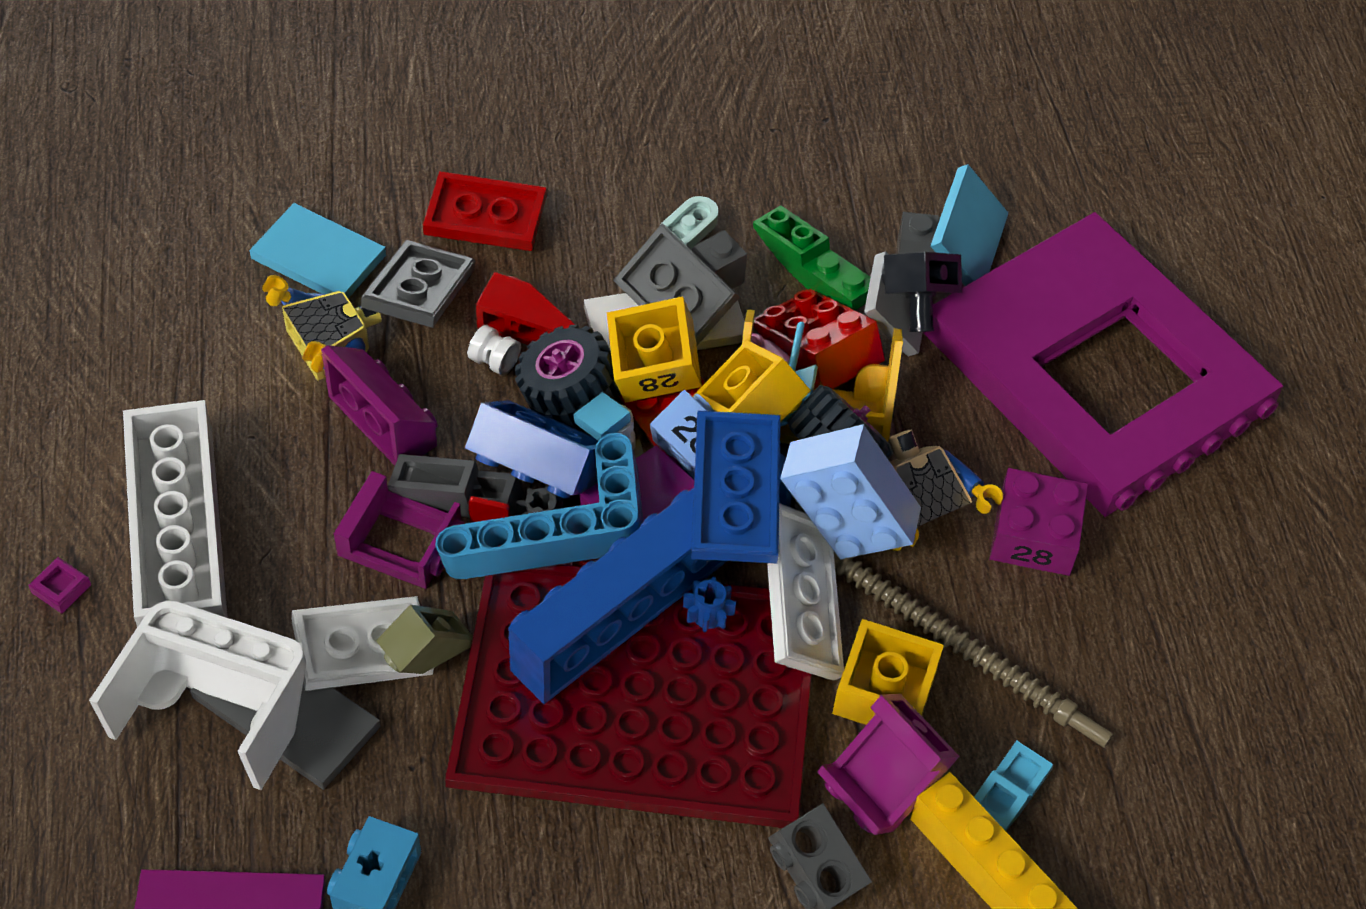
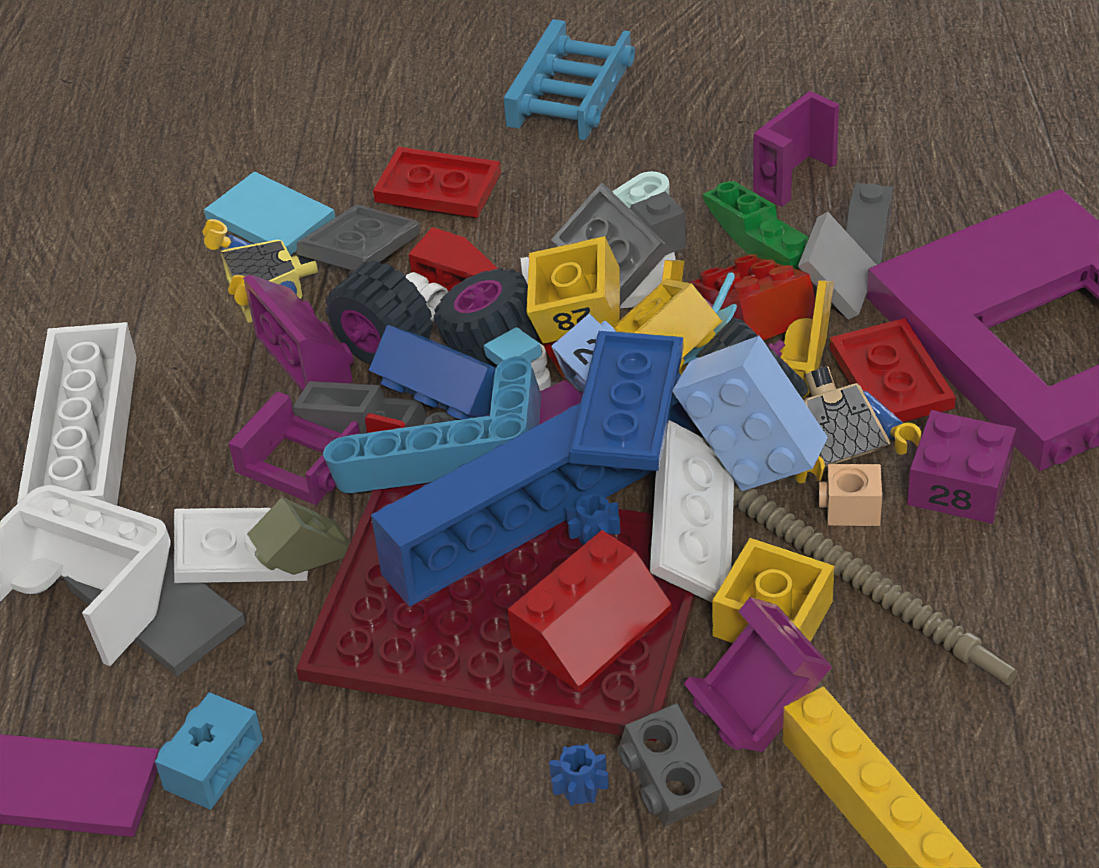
camera: 15 degrees right, 10 degrees down
(457, 375) = (371, 300): none -> black wheel
(573, 67) = (547, 60): none -> dark azure fence
(720, 705) = (588, 611): none -> red slope
(729, 885) = (579, 774): none -> blue gear
(848, 147) = (785, 141): none -> magenta panel
(921, 278) = (863, 235): black brick -> none
(946, 542) = (852, 494): none -> light nougat brick
(960, 416) = (893, 369): none -> red plate
(970, 224) = (925, 198): medium azure tile -> none
(1013, 784) = (900, 712): medium azure slope -> none

